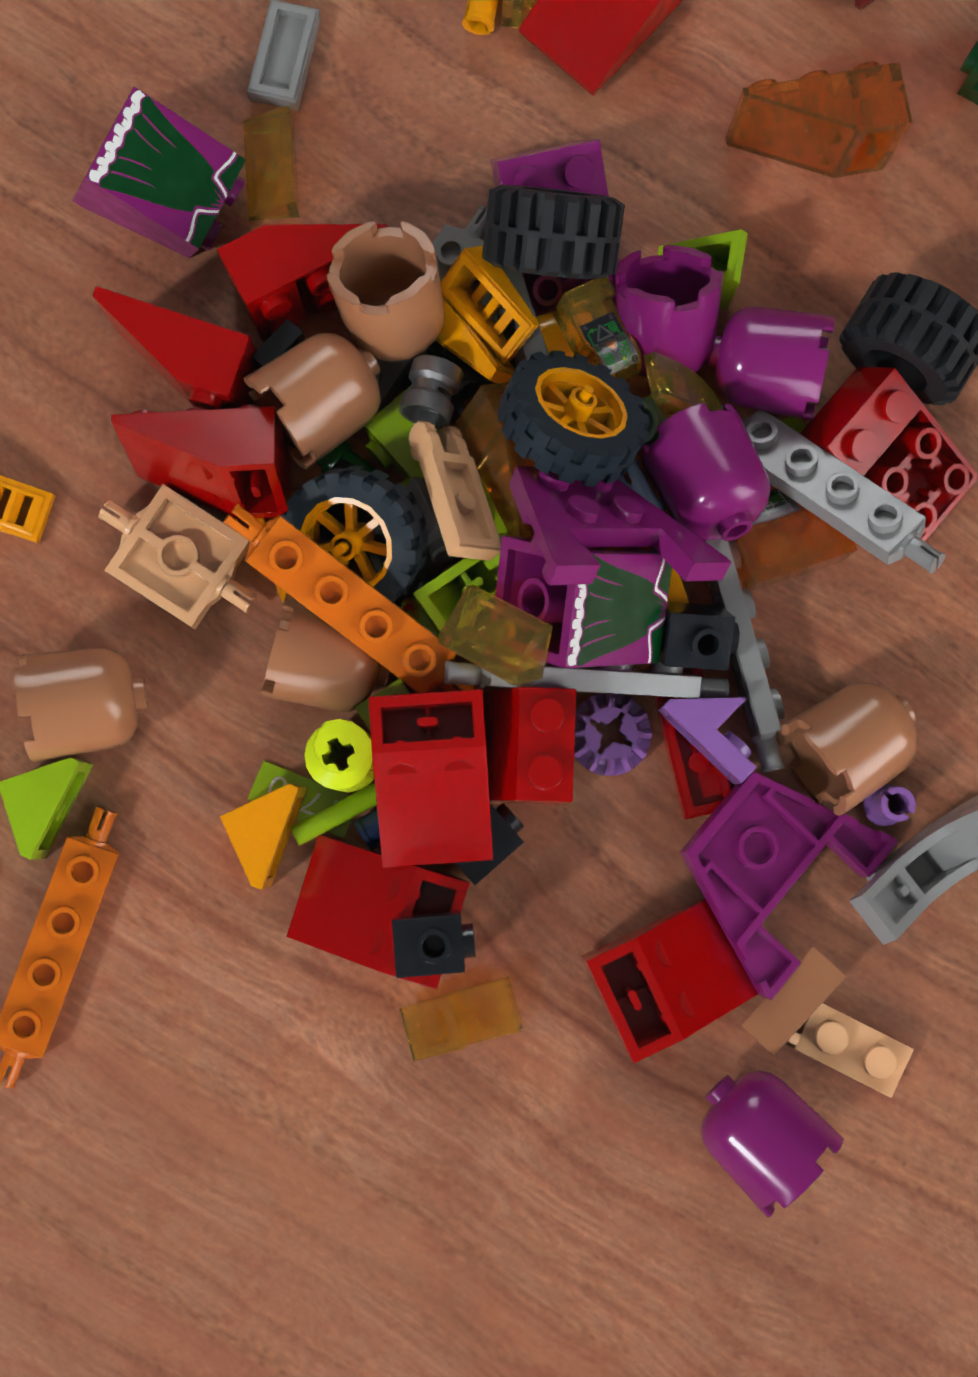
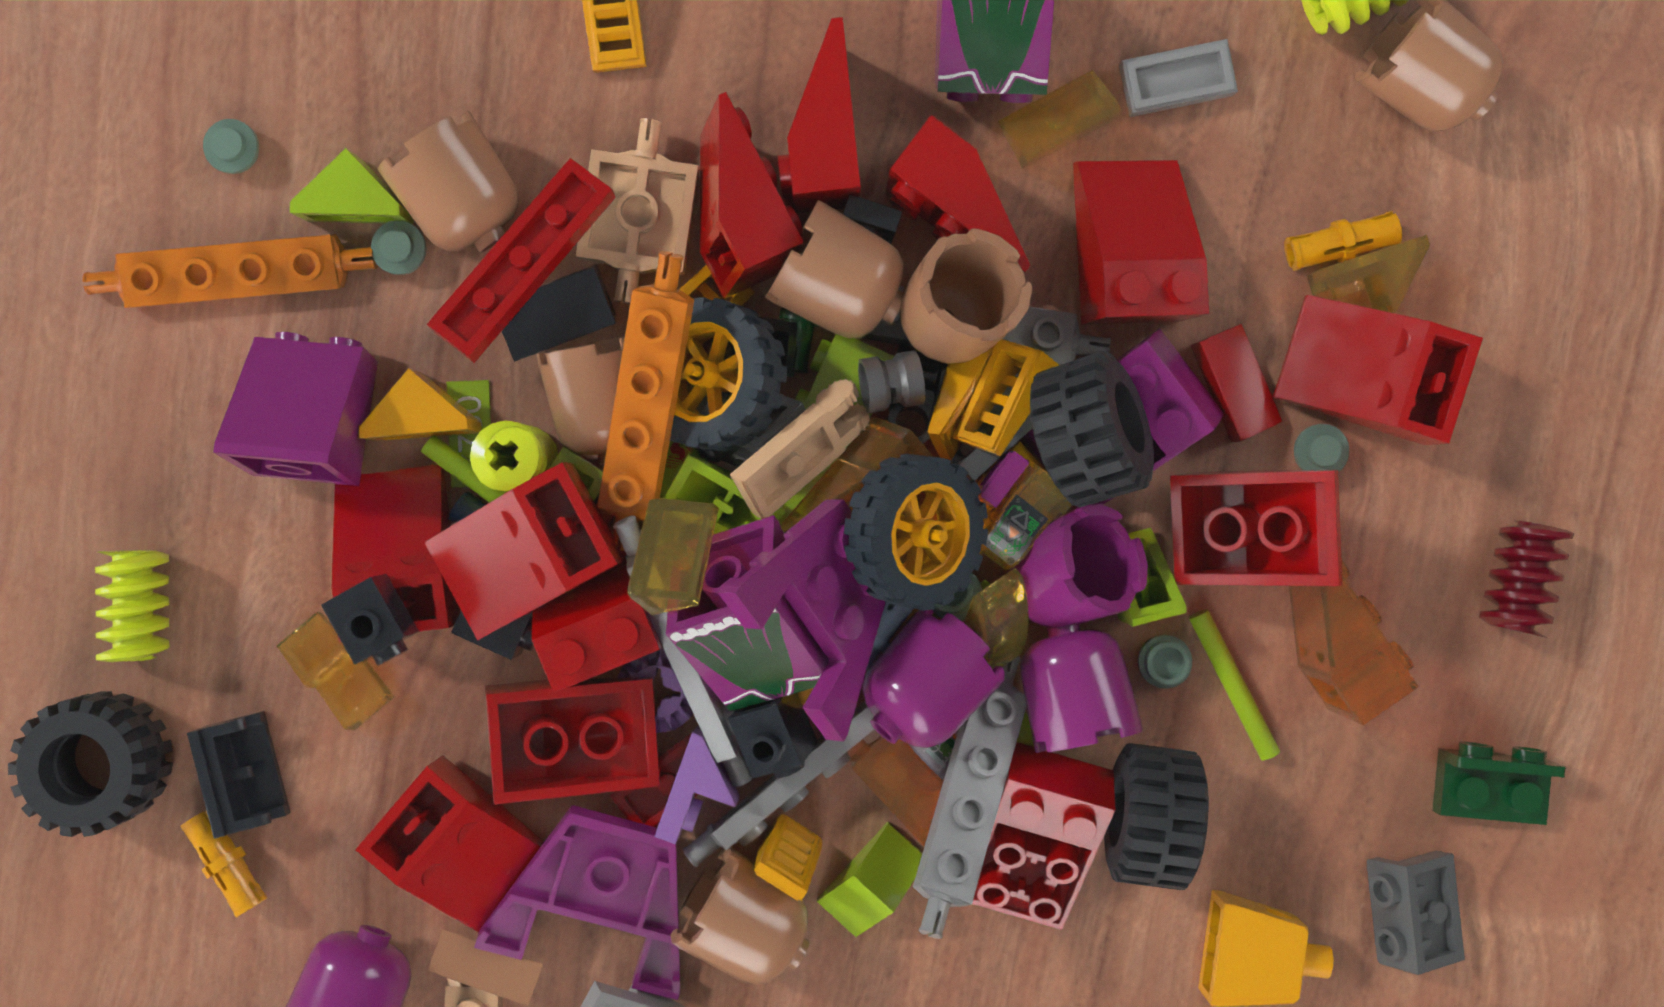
camera: 70 degrees right, 5 degrees up
(108, 783) = (398, 247): none -> sand green plate
(172, 668) = (521, 260): none -> red plate
(212, 932) = (300, 410): none -> magenta slope
(232, 667) = (560, 313): none -> black hinge
(315, 1176) = (133, 605): none -> neon yellow piece
(412, 145) = (1137, 244): none -> red slope
(433, 1328) = (49, 770): none -> black tyre
(515, 1150) = (238, 774): none -> black hinge
(558, 331) = (1002, 478): none -> magenta tile
(566, 119) = (1236, 383): none -> red slope
(590, 1204) = (224, 865): none -> light orange pin
(618, 826) = (572, 740): none -> red slope
(657, 75) = (1321, 448): none -> sand green plate
(701, 138) = (1257, 528): none -> red slope
(781, 283) = (1164, 661): none -> sand green plate
(810, 677) = (788, 856): none -> light orange slope
(827, 235) = (1234, 685): none -> lime bar
(867, 620) = (873, 881): none -> lime slope
(877, 809) = (700, 986): medium lavender pin -> none

